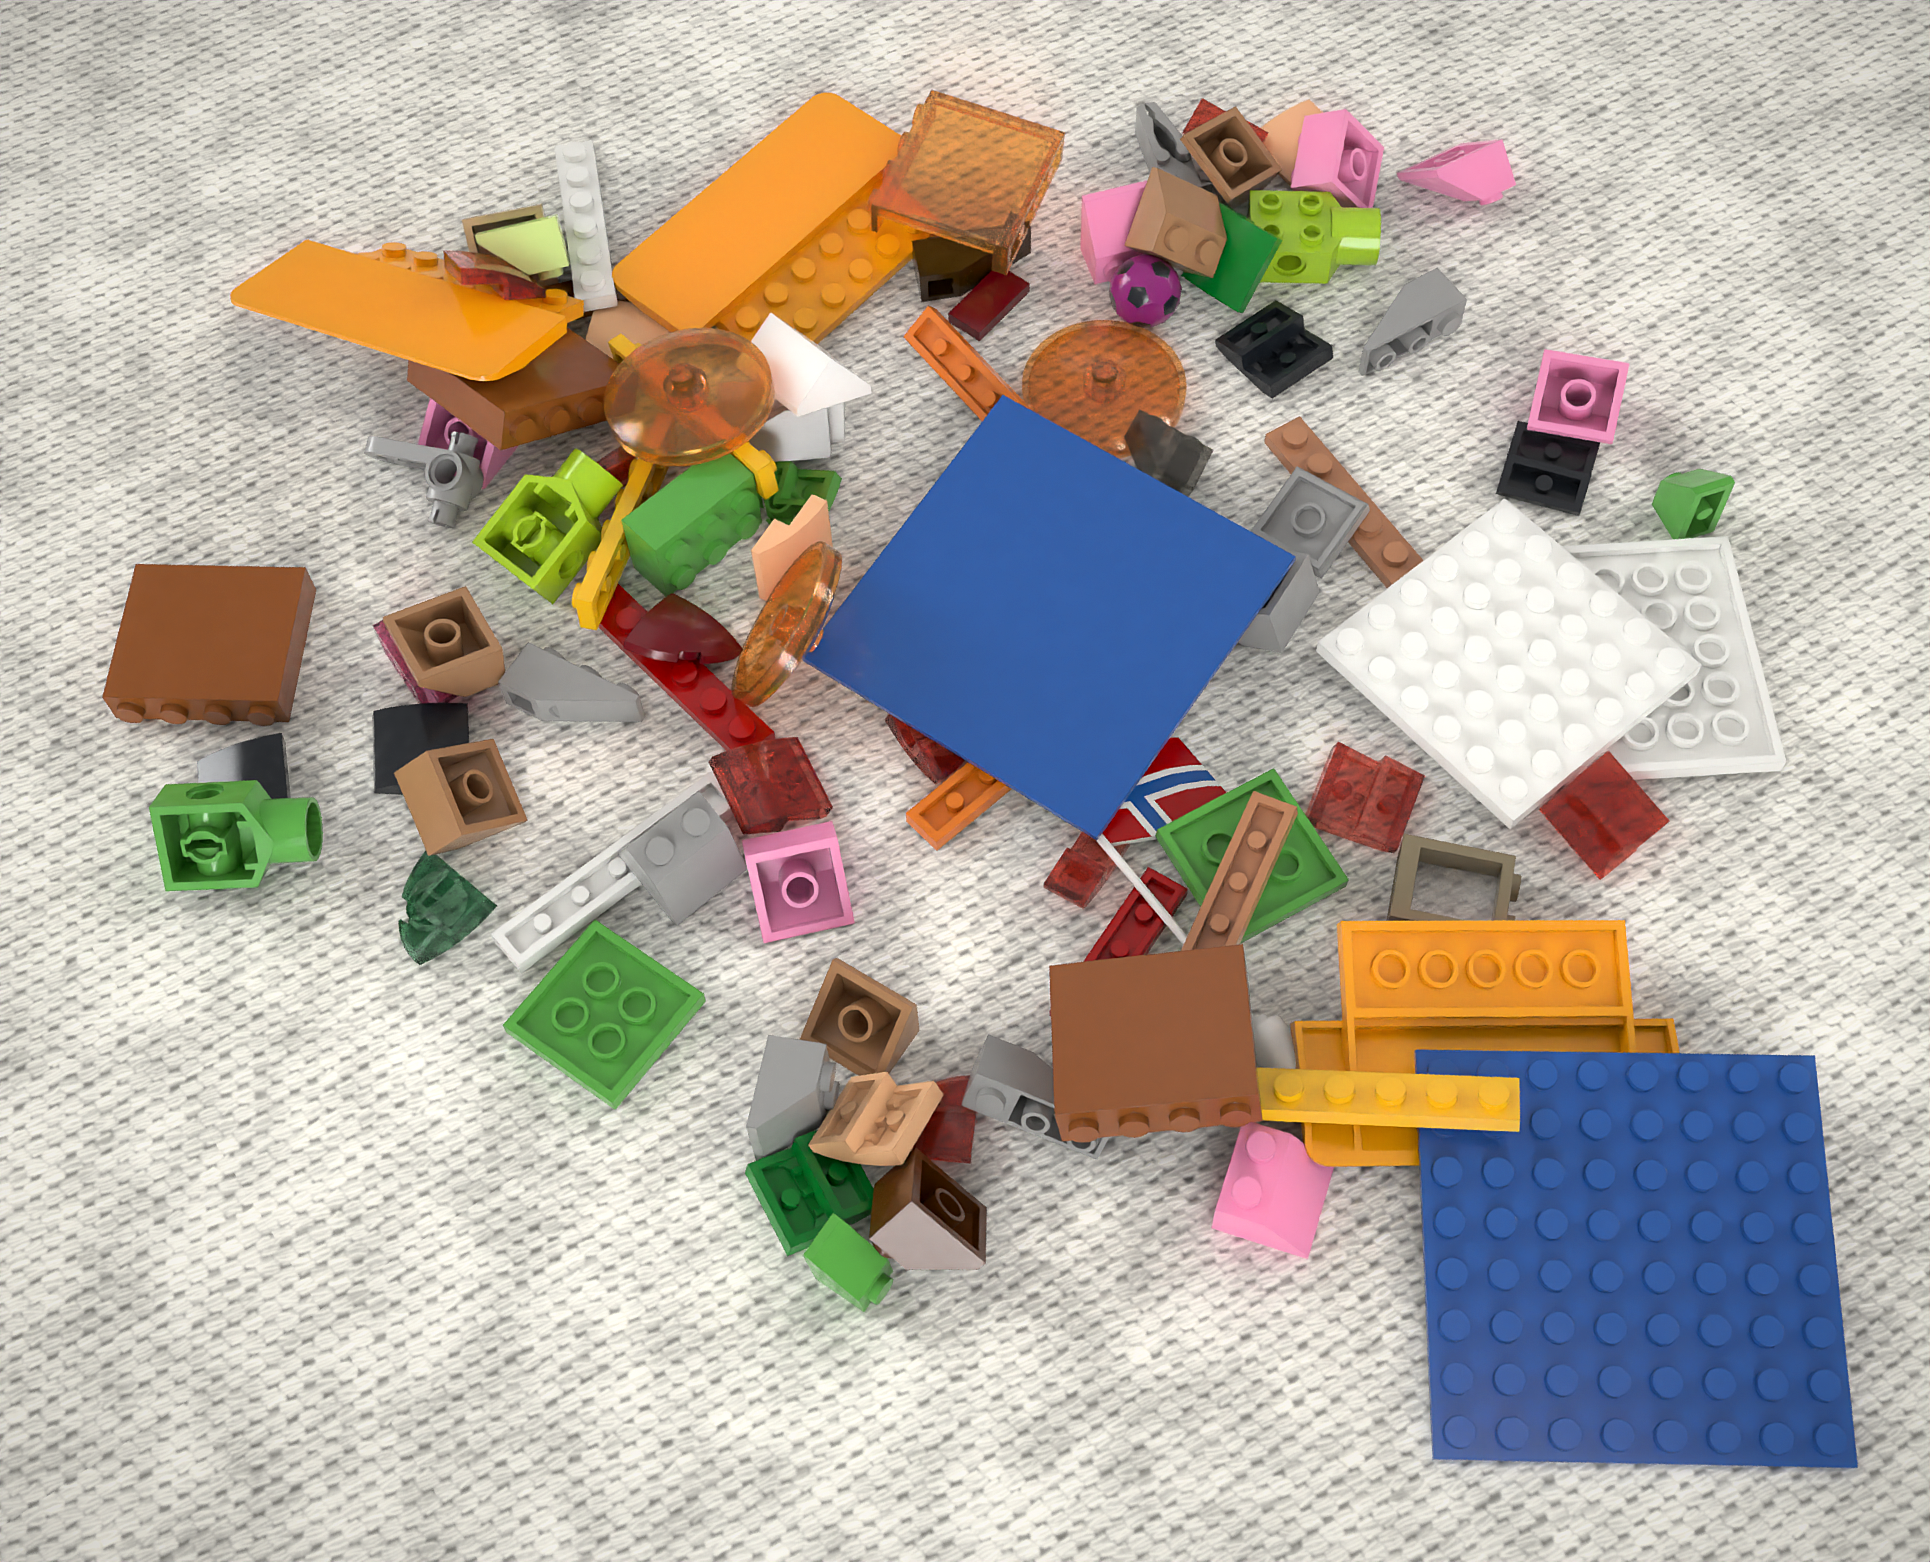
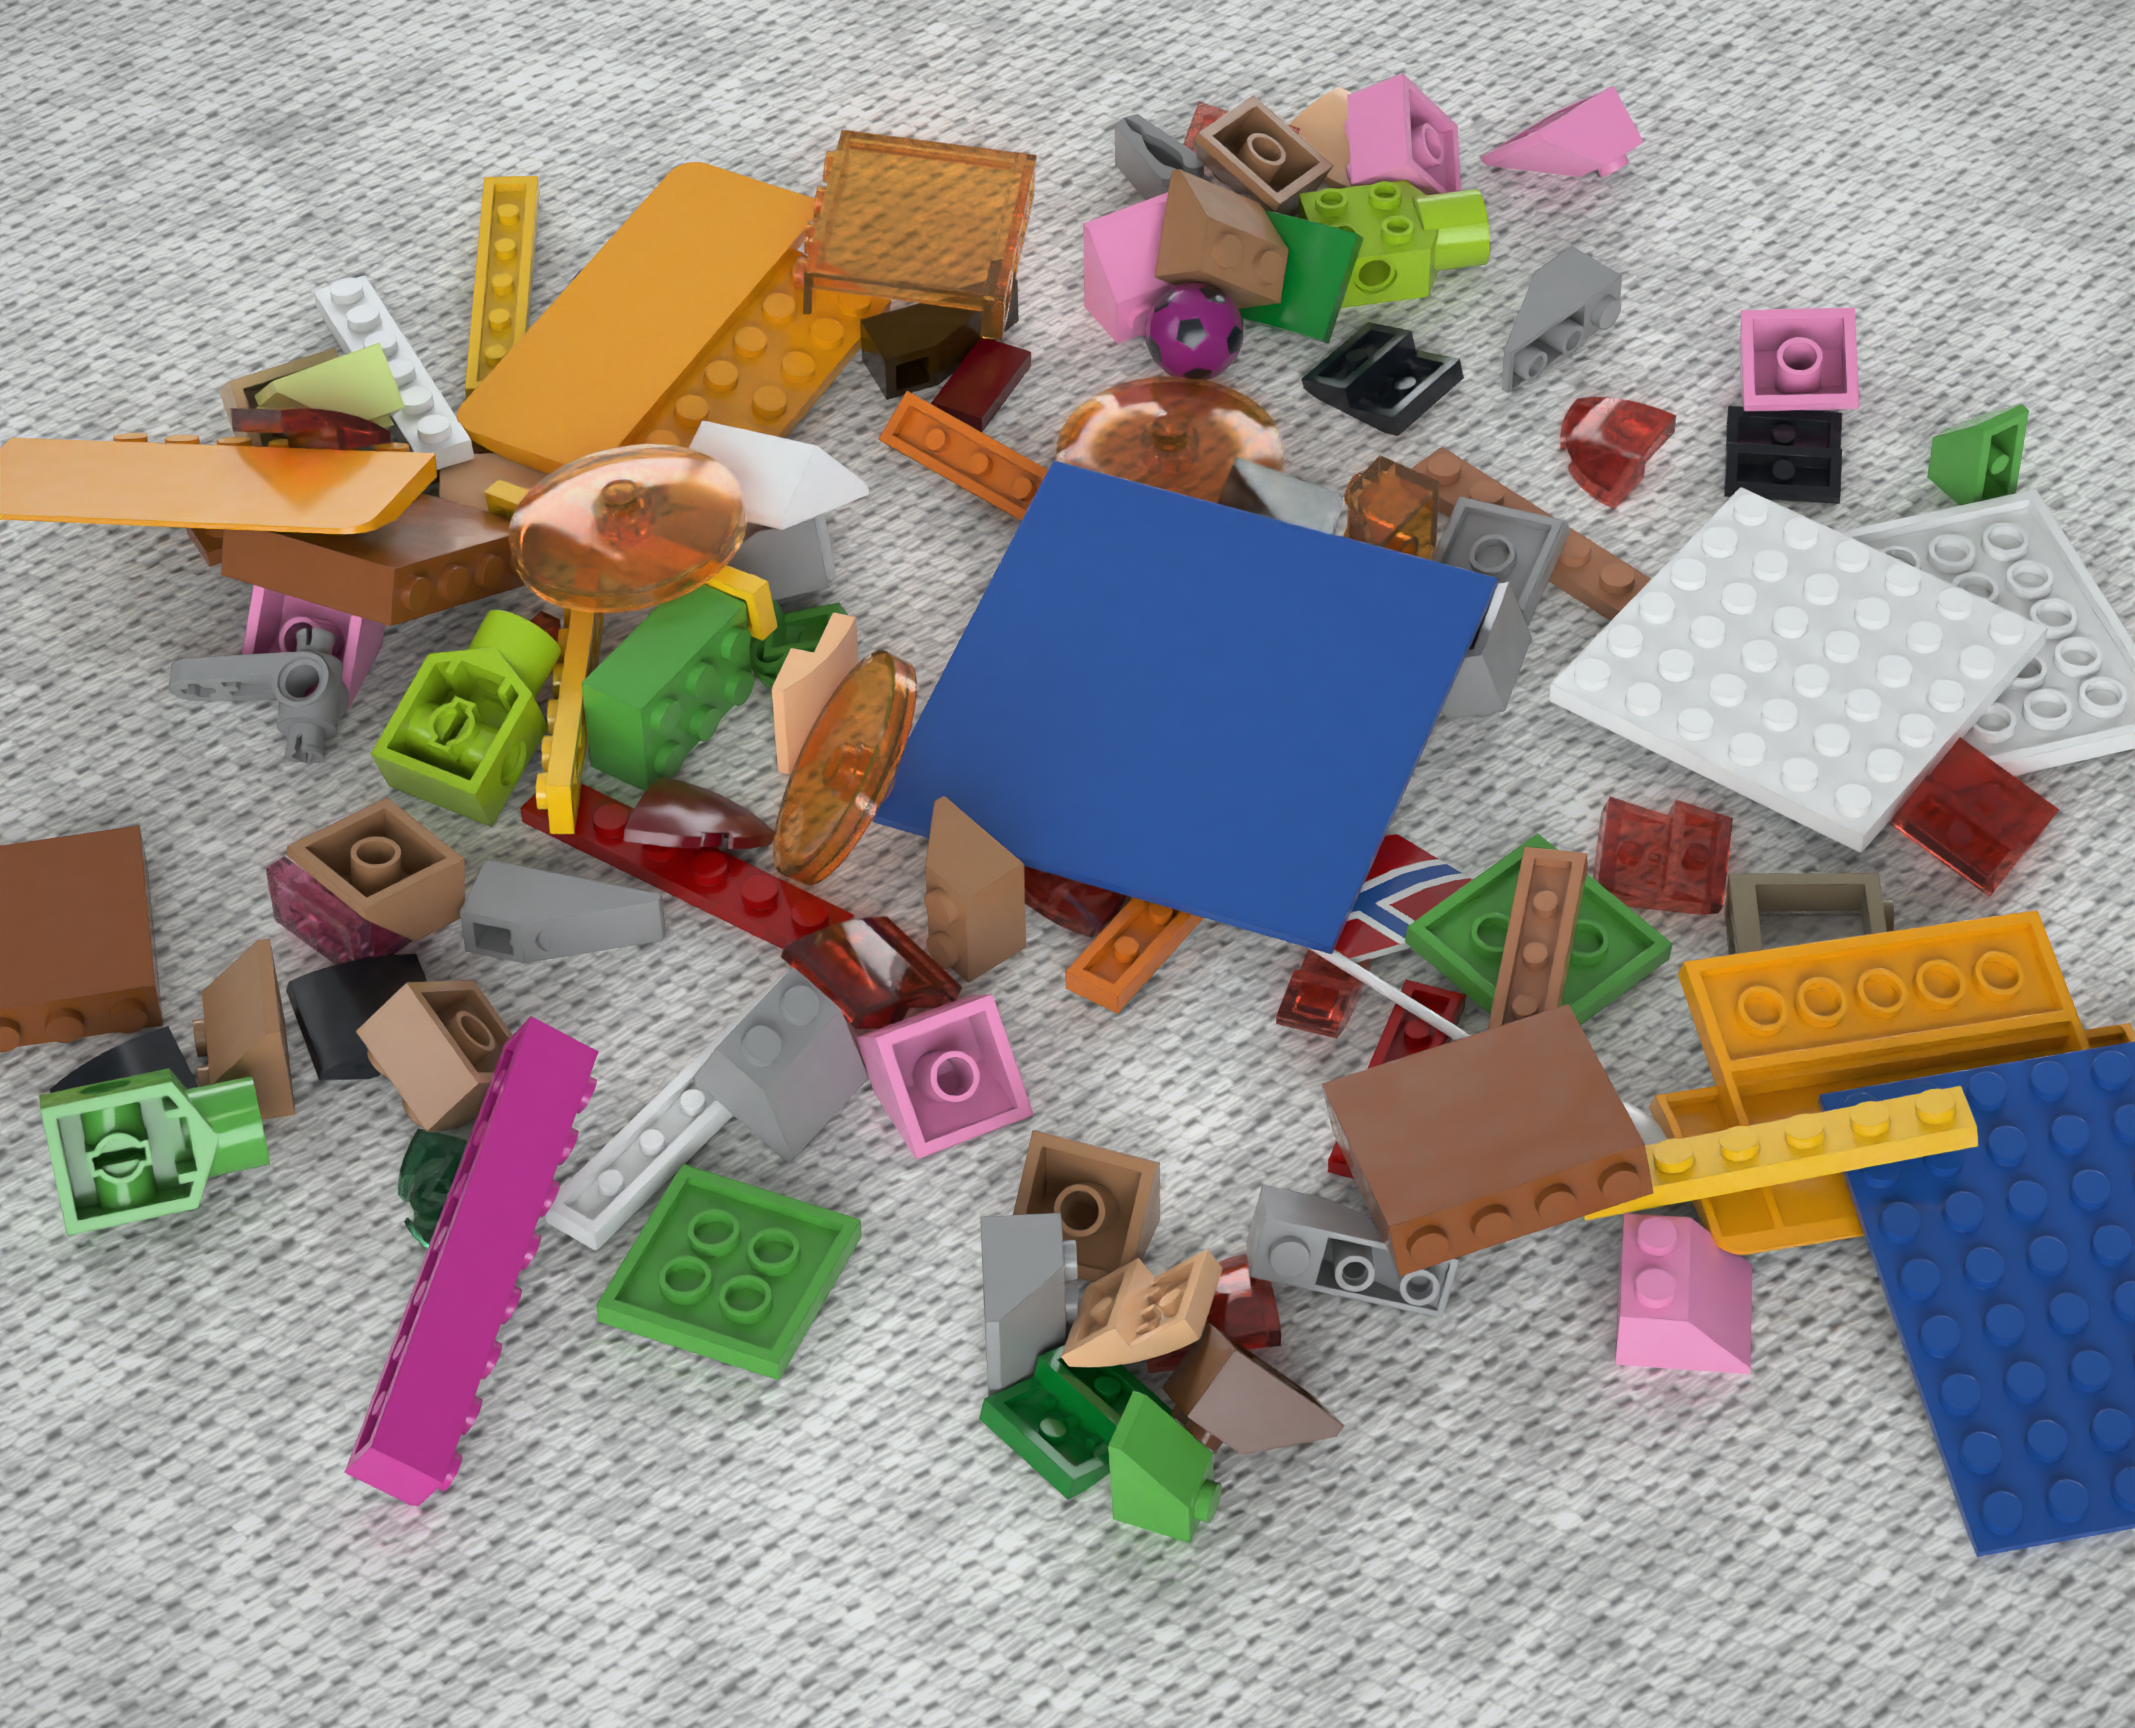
camera: 15 degrees left, 15 degrees down
(331, 756) = (247, 1031): none -> medium nougat slope
(422, 979) = (473, 1265): none -> dark pink brick
(684, 154) = (502, 272): none -> yellow plate
(849, 740) = (971, 895): none -> medium nougat slope
(1239, 481) = (1393, 508): none -> clear orange slope
(1423, 435) = (1612, 443): none -> clear red brick

